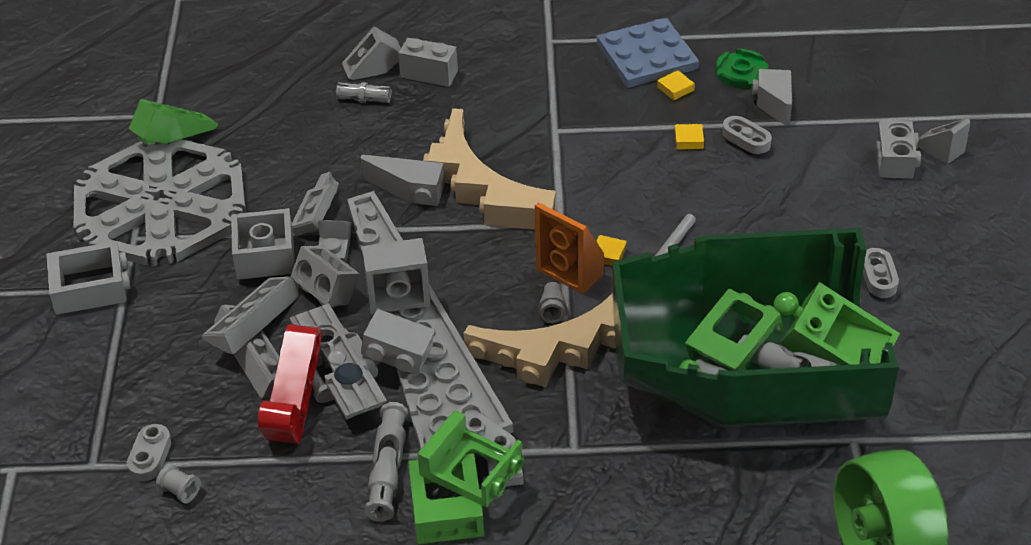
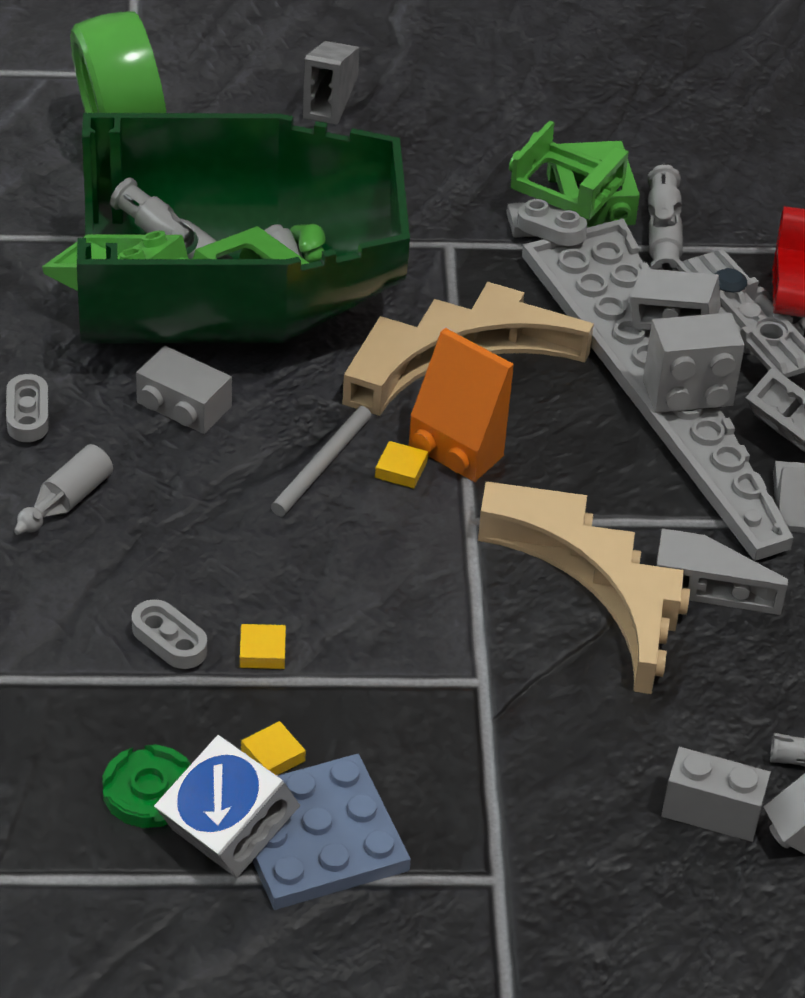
camera: 175 degrees right, 0 degrees up
(696, 34) = (227, 805): none -> piece
(774, 93) = (106, 705): light grey slope -> none
(837, 210) = (66, 487): none -> light grey wheel

